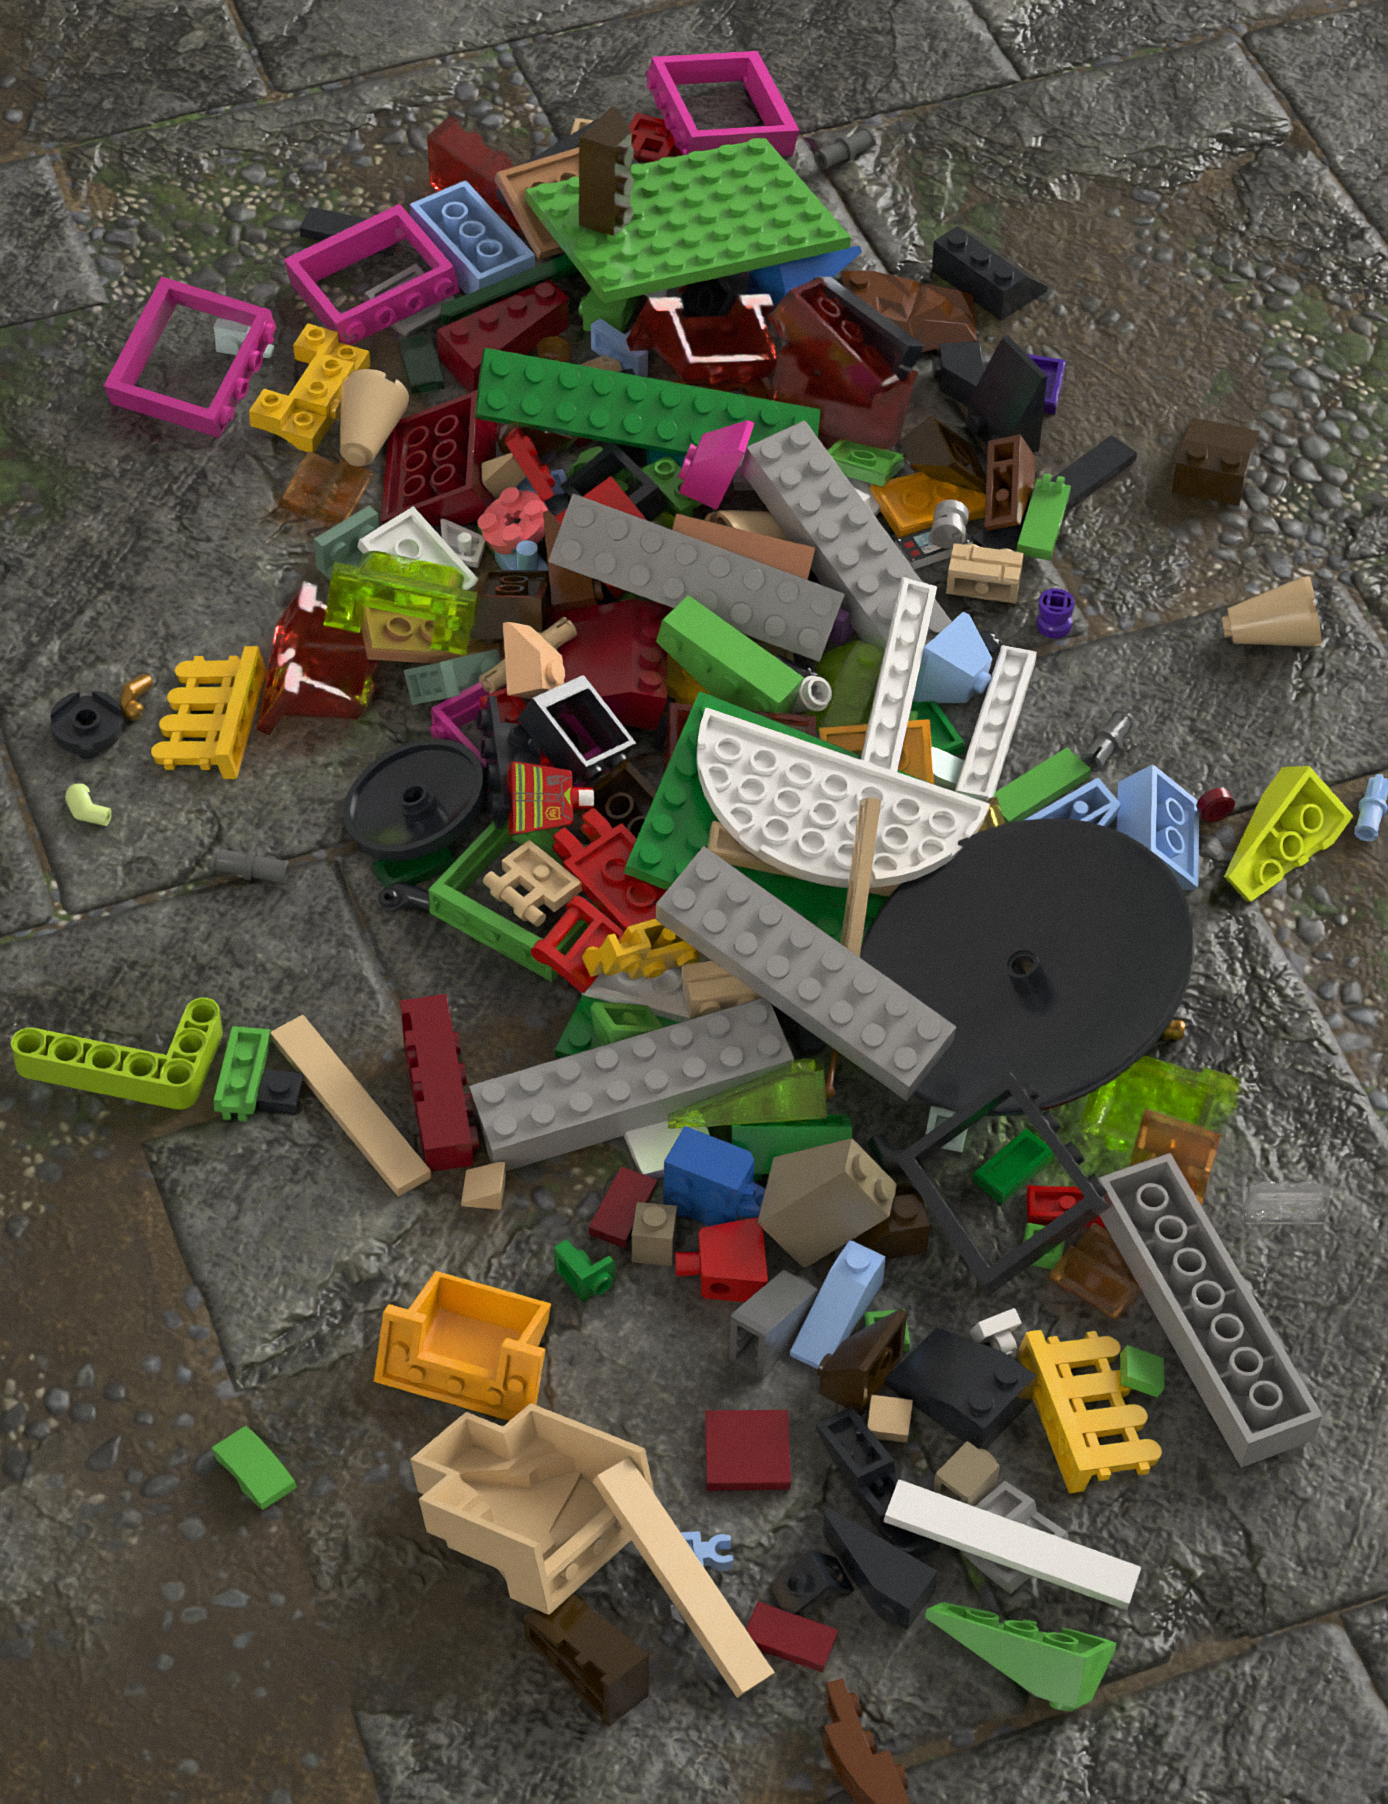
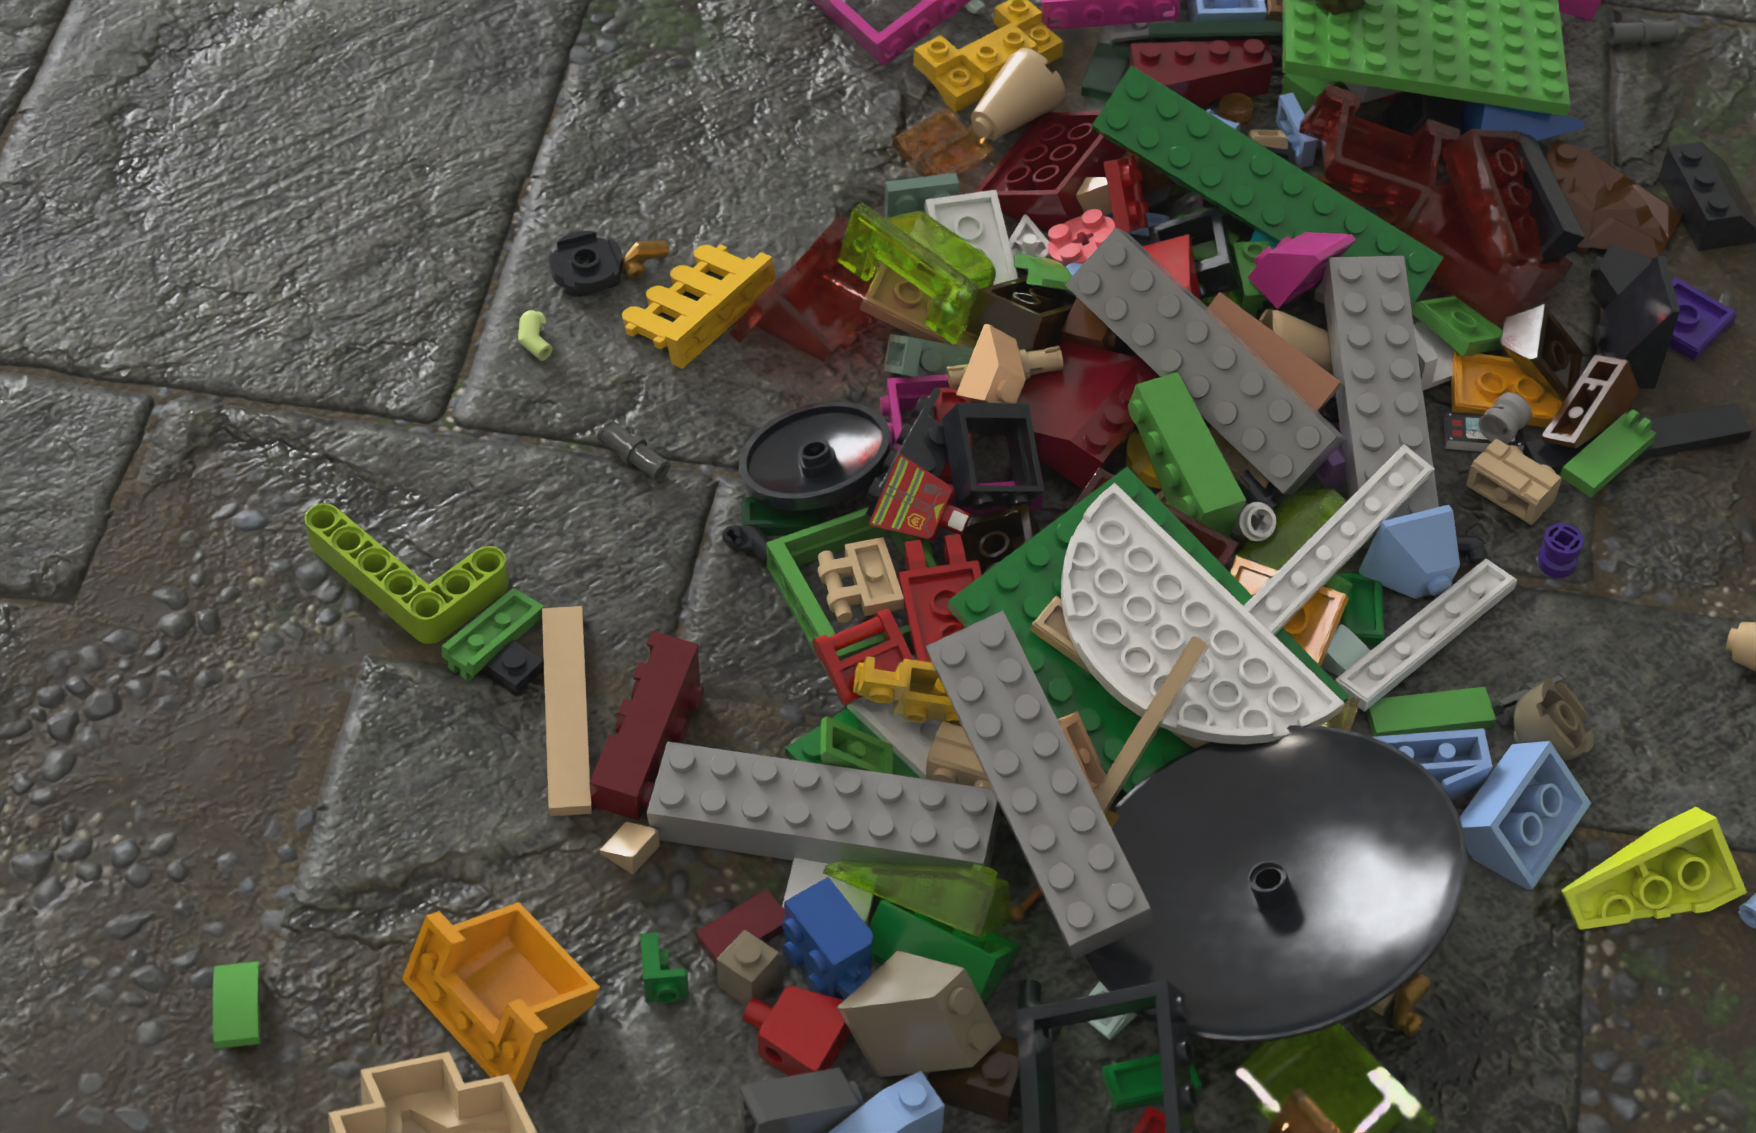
camera: 30 degrees right, 0 degrees up
(502, 560) = (1043, 271): none -> bright green slope
(1135, 746) = (1555, 716): none -> dark tan cylinder
(1215, 805) = (1602, 813): dark red tile -> none

